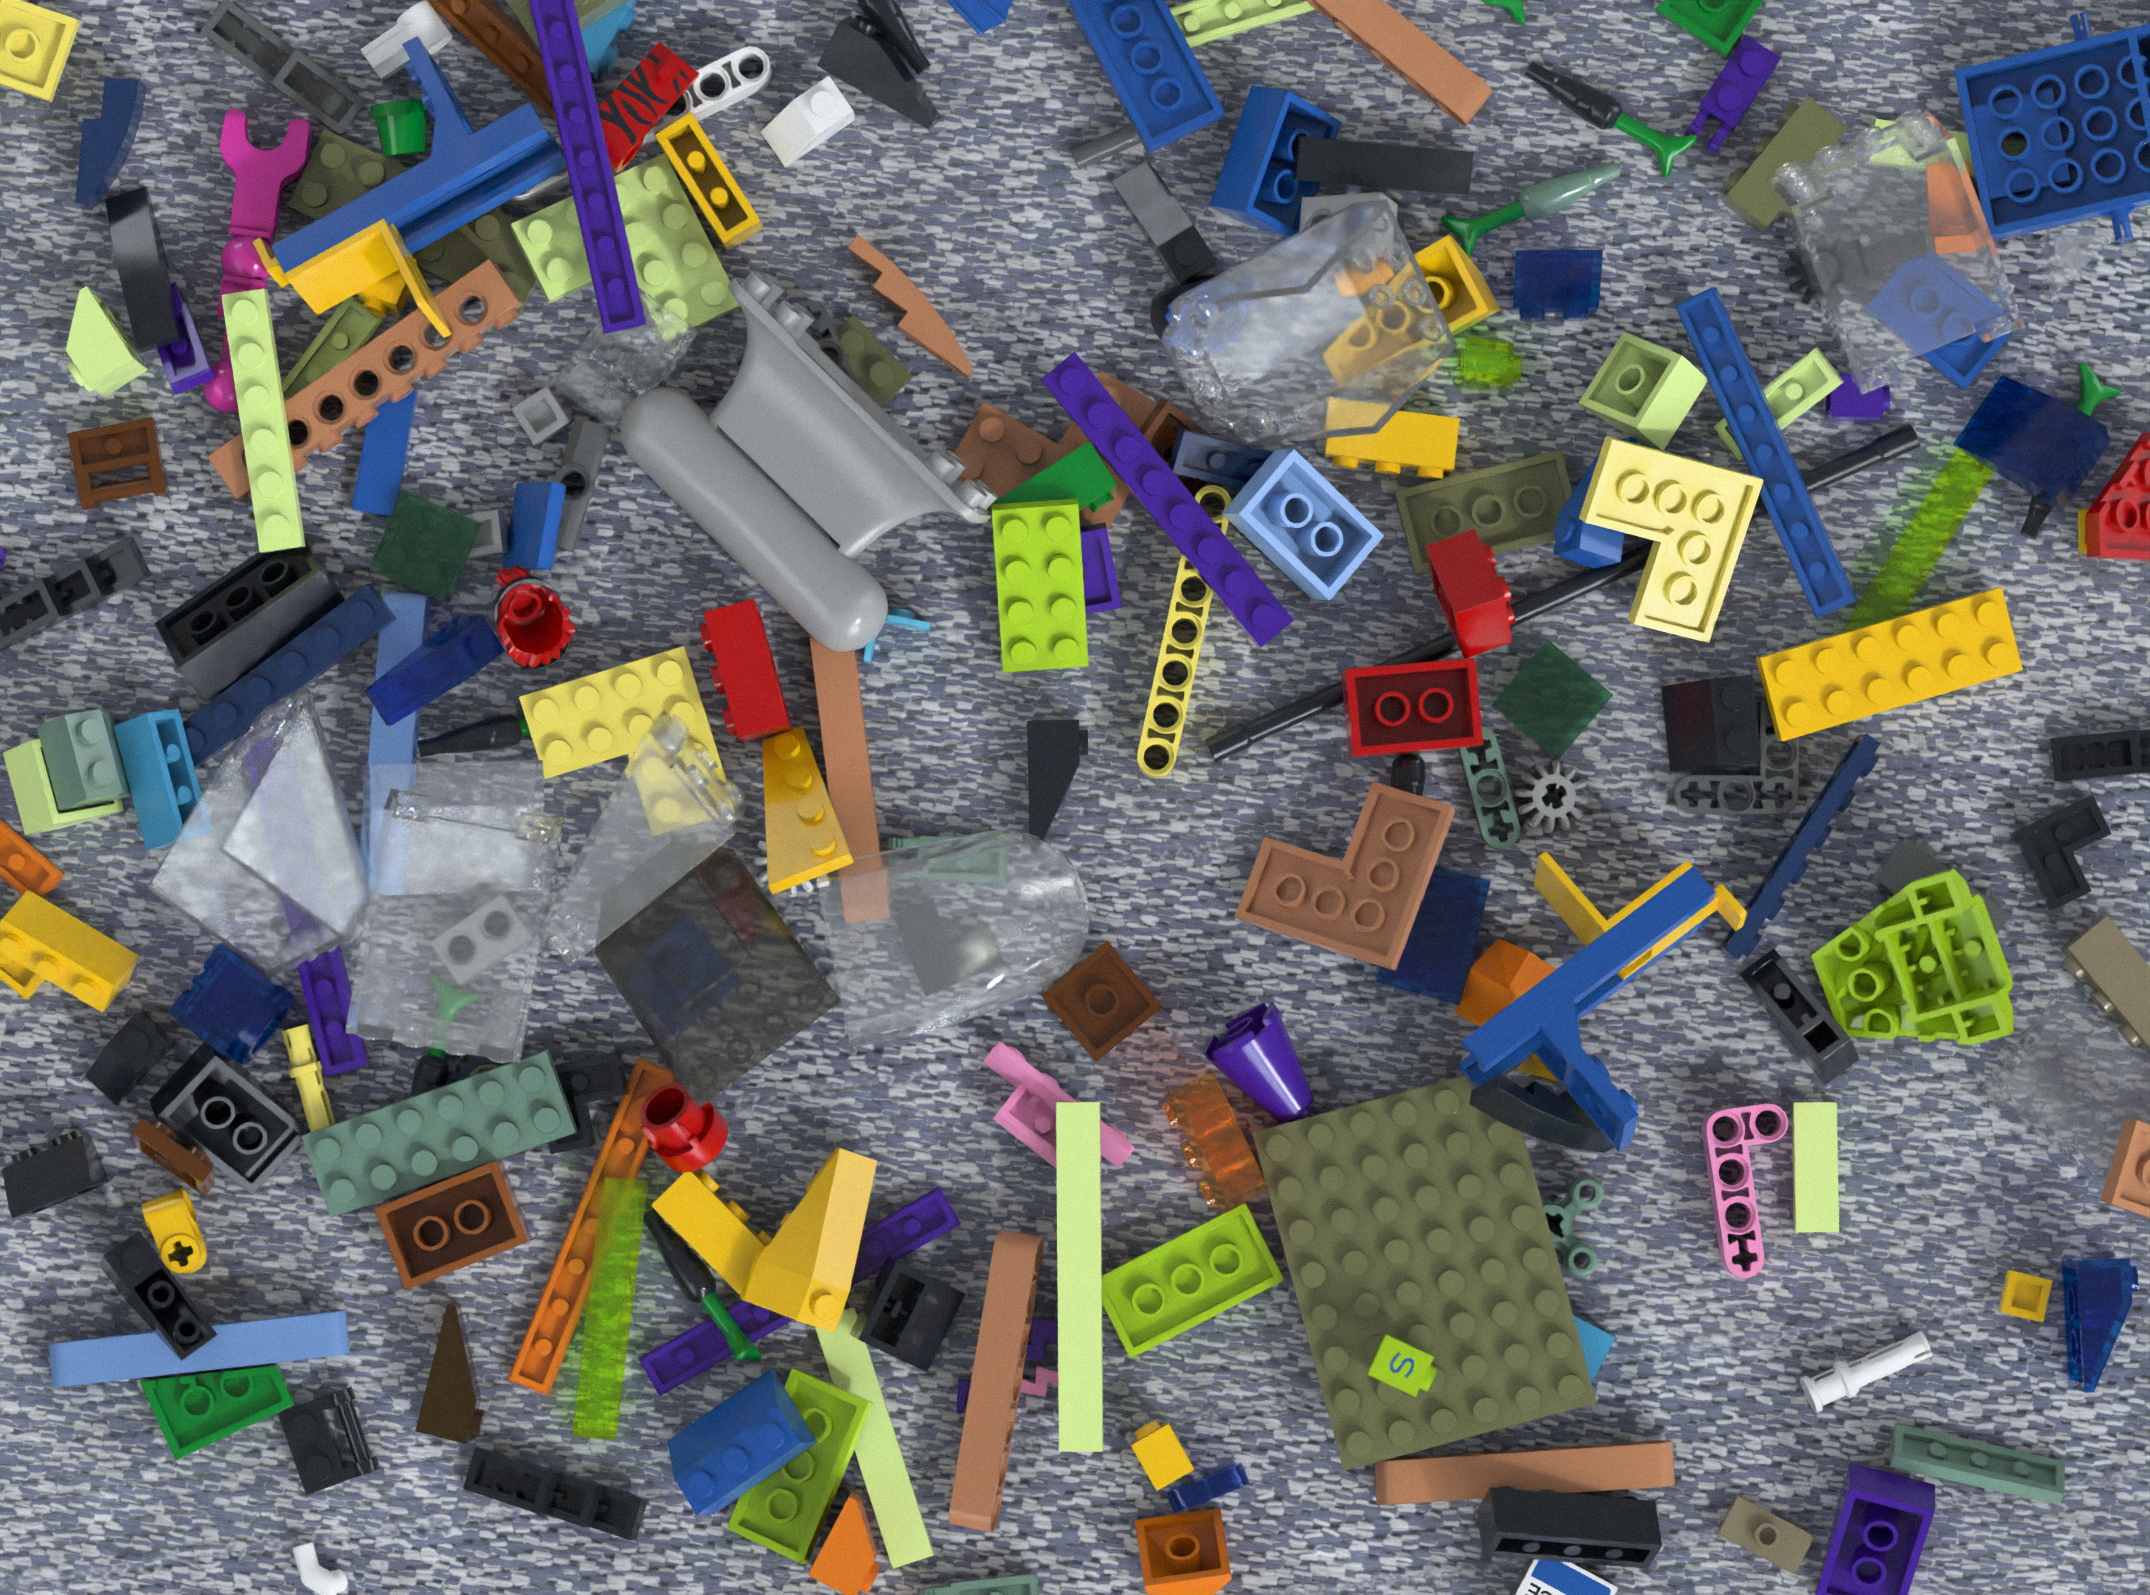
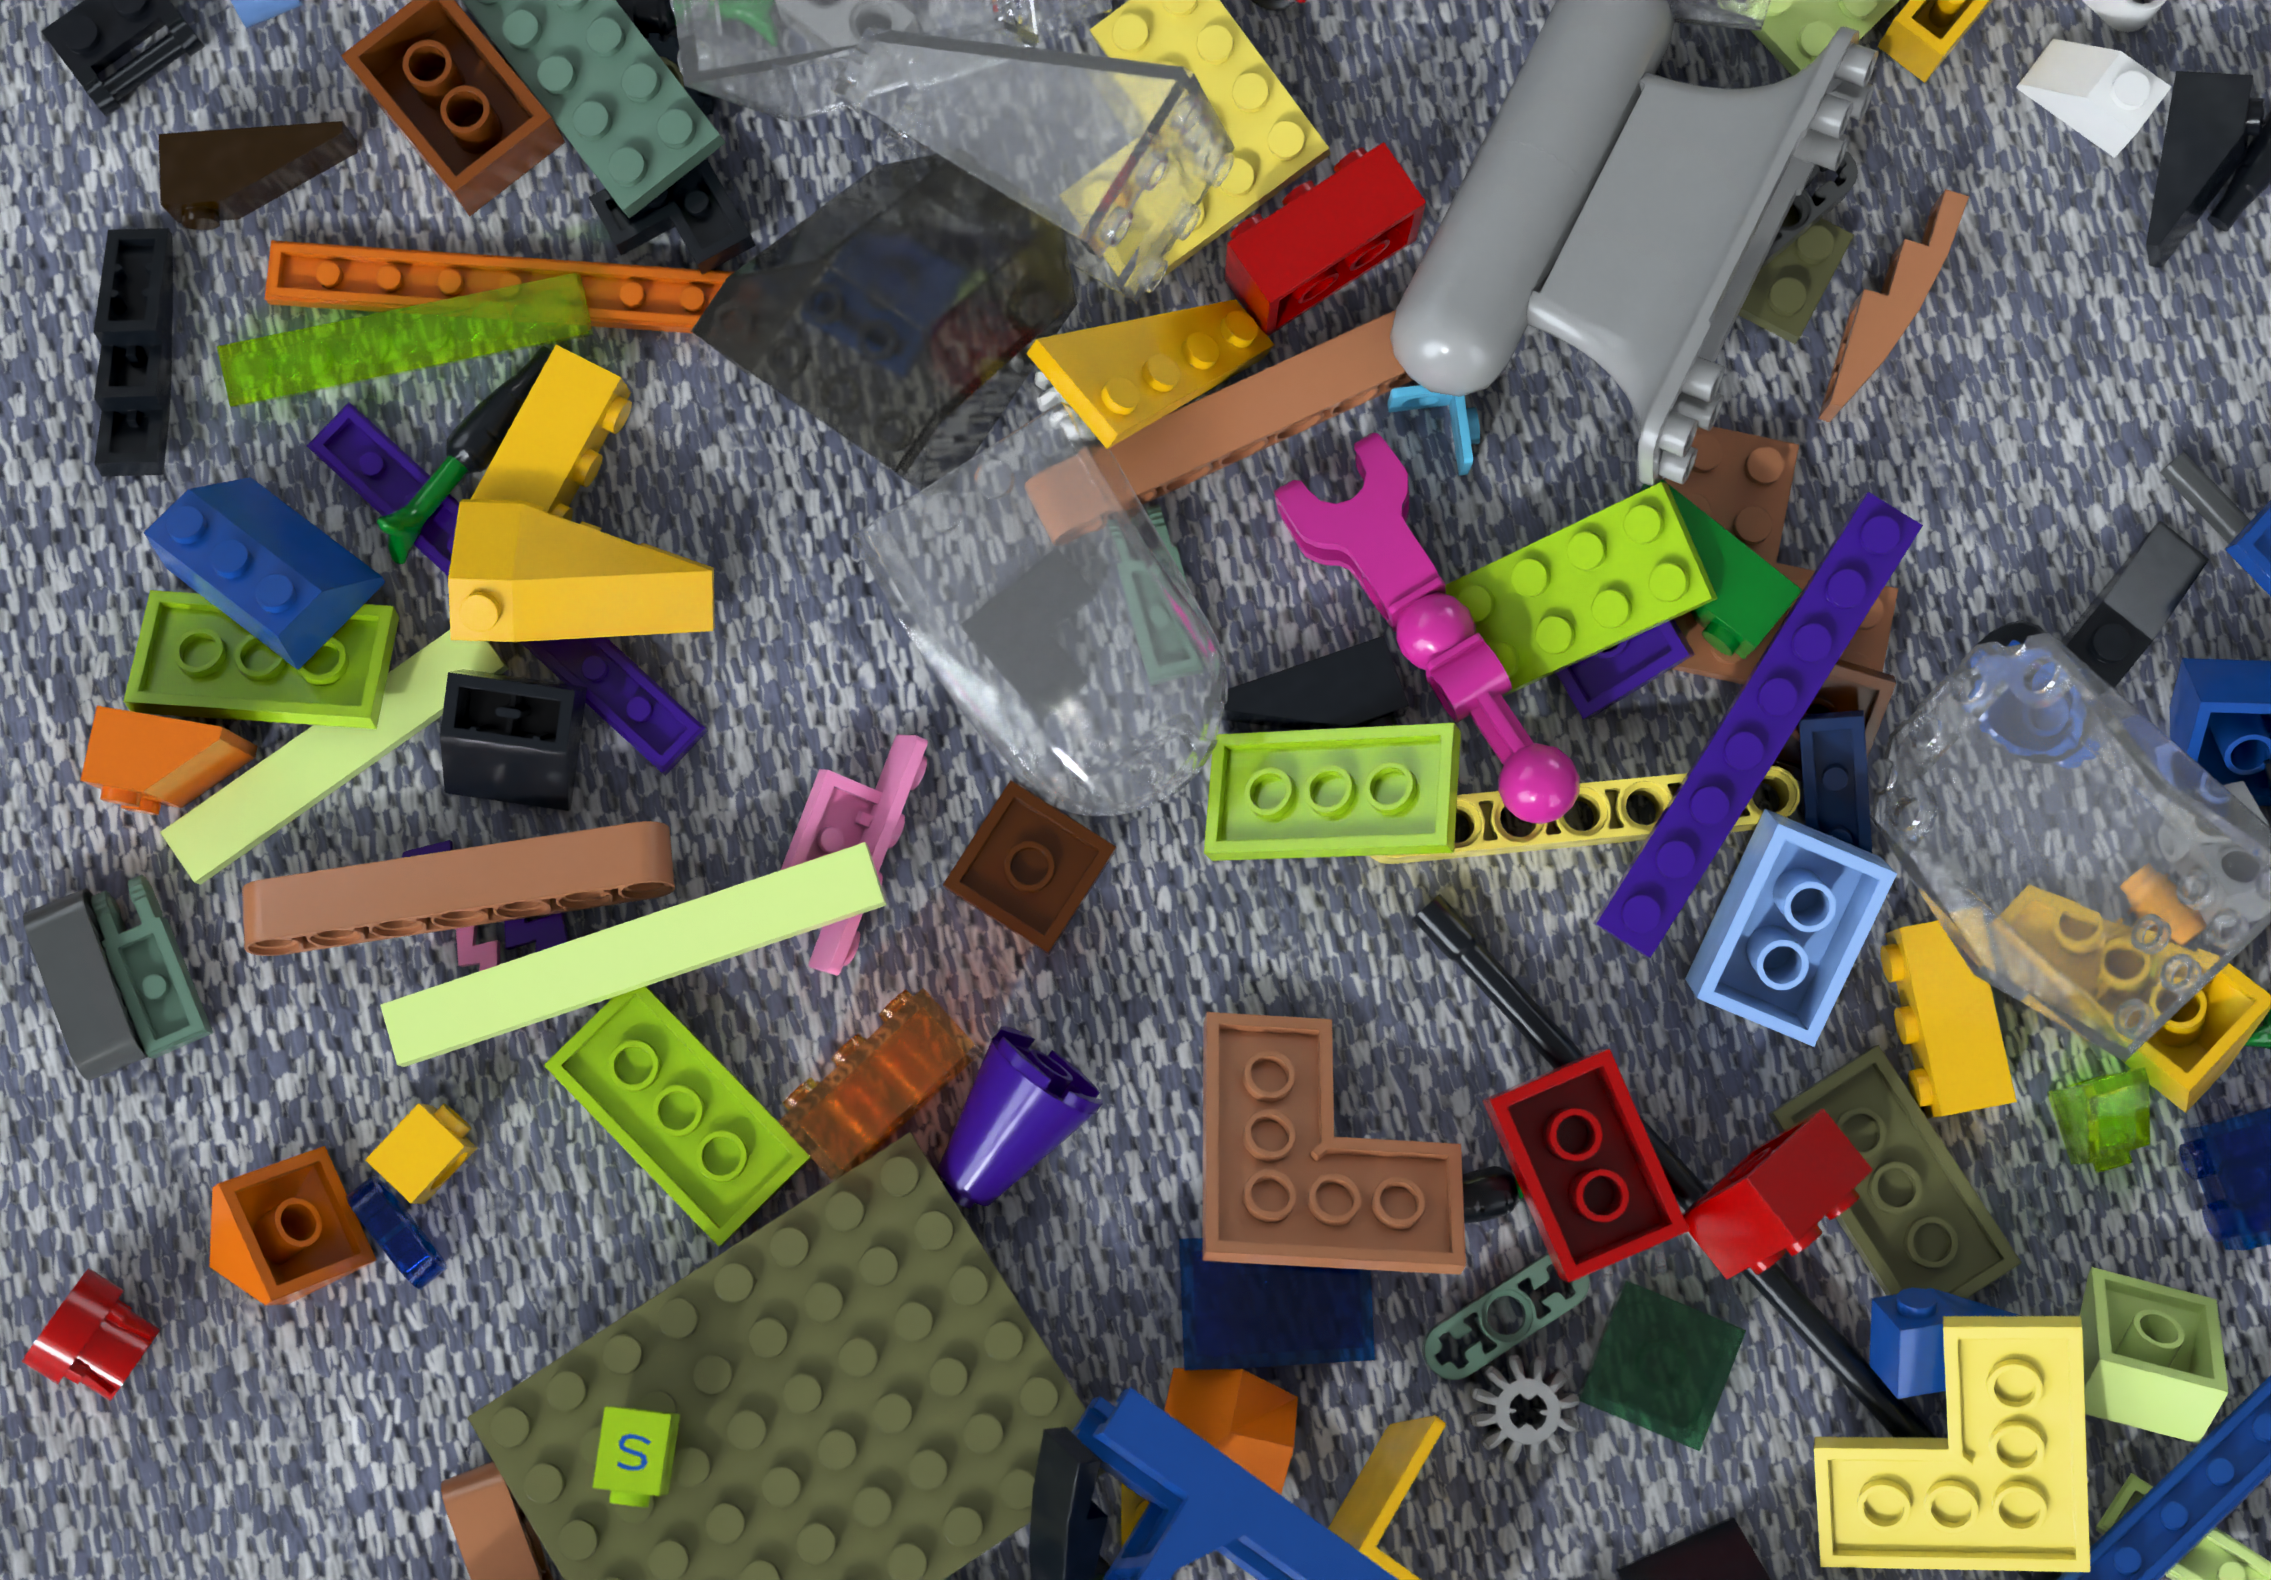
camera: 75 degrees right, 5 degrees down
(680, 1130) = (662, 358): red piece -> none
(1030, 687) = (1430, 626): none -> dark pink piece
(1120, 788) = (1333, 792): none -> lime plate

